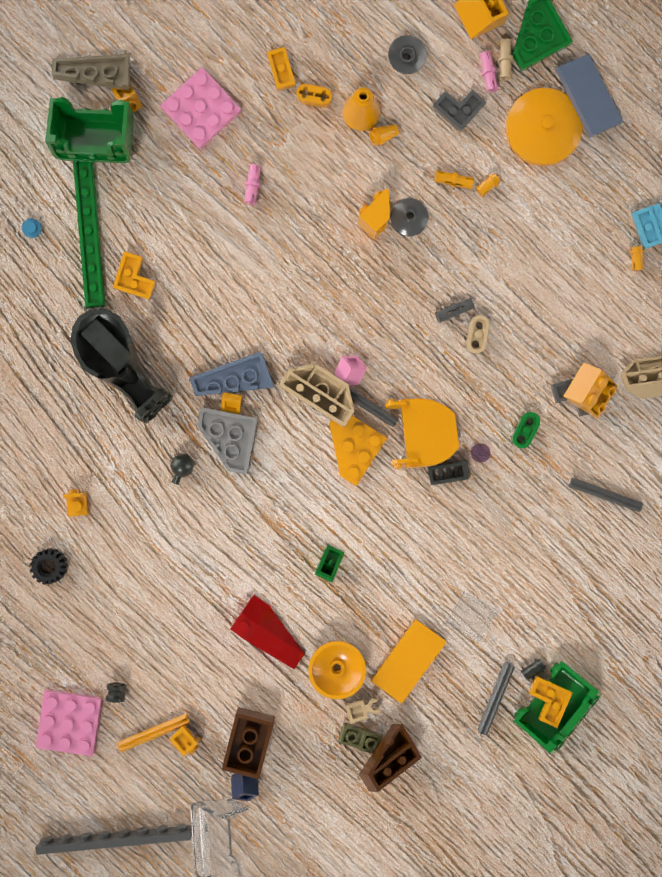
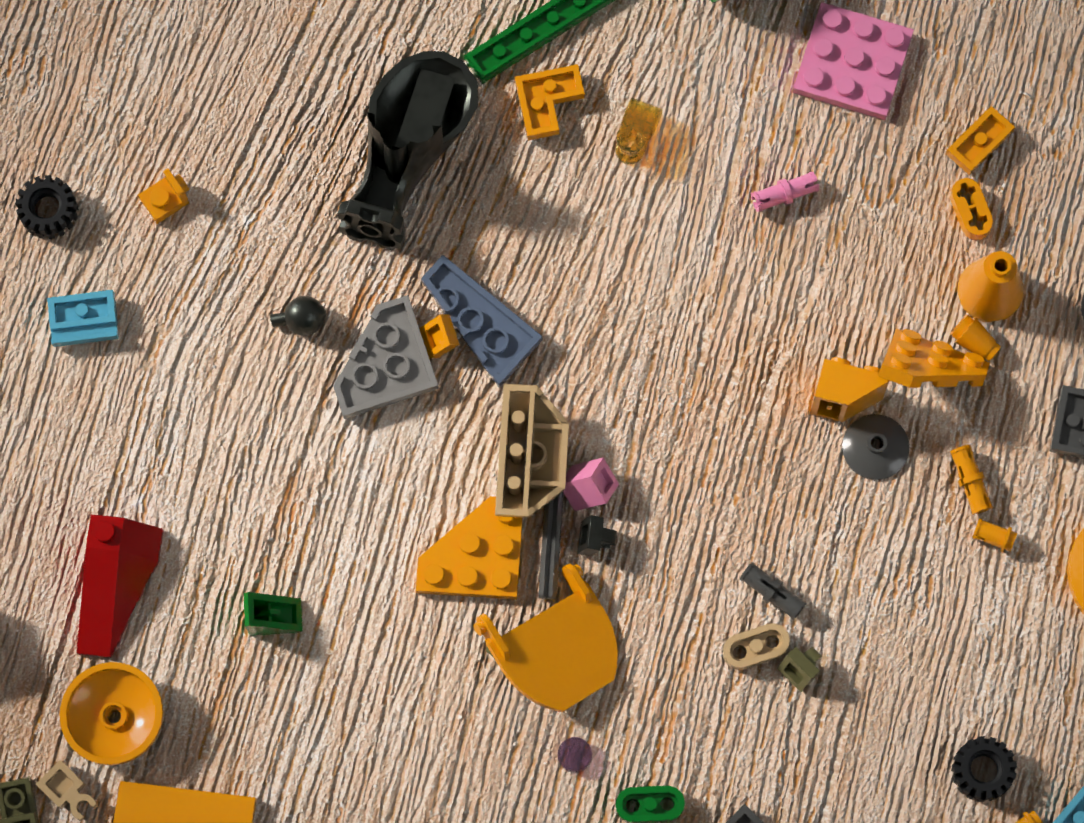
camera: 60 degrees right, 15 degrees down
(120, 578) = (83, 318): none -> medium azure plate
(175, 239) = (637, 127): none -> clear yellow piece
(378, 383) = (594, 536): none -> pearl dark grey tile
(385, 166) = (919, 360): none -> light orange plate
(431, 470) = (533, 744): pearl dark grey slope -> none
(500, 318) = (800, 667): none -> olive tile
(606, 250) = (999, 754): none -> black tyre

